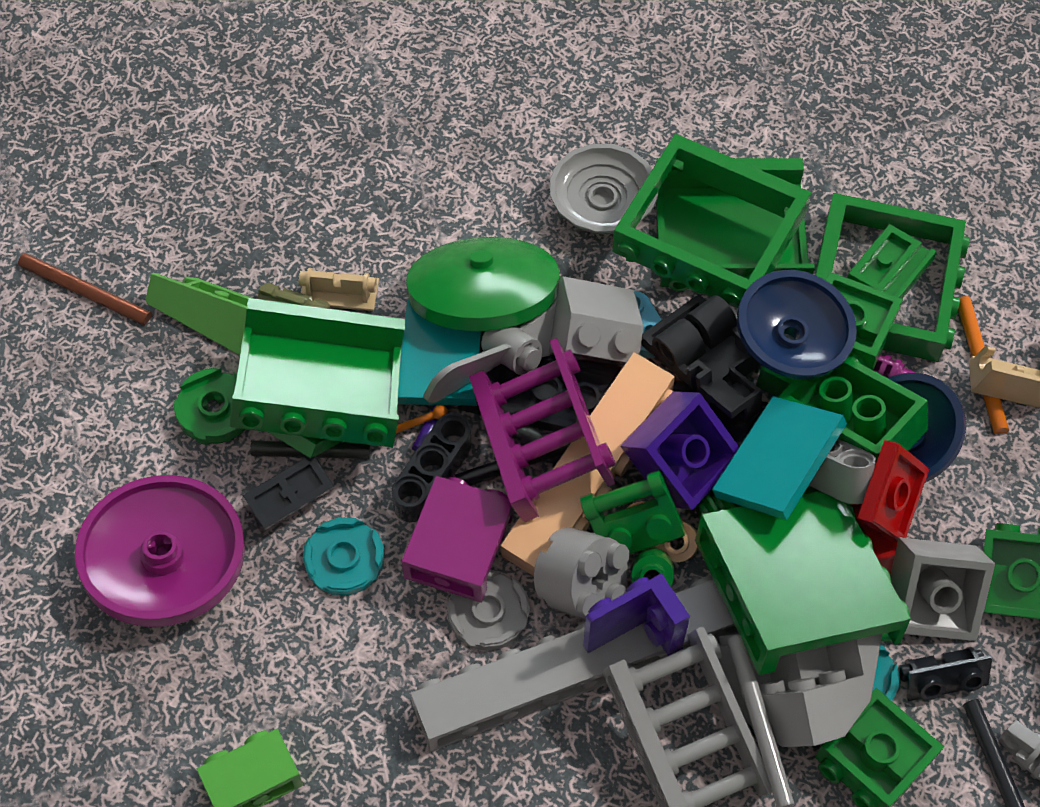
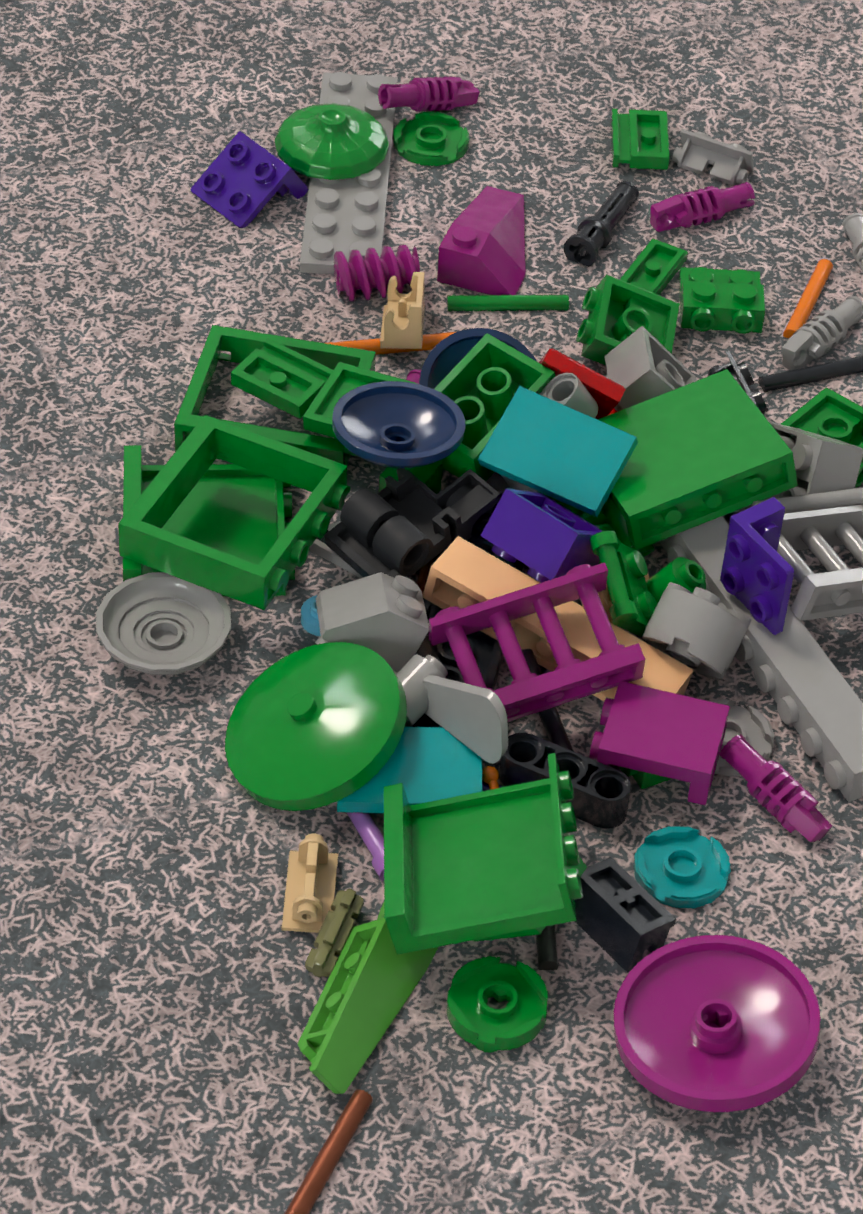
camera: 95 degrees left, 15 degrees down
(411, 636) = (776, 790): none -> magenta hinge

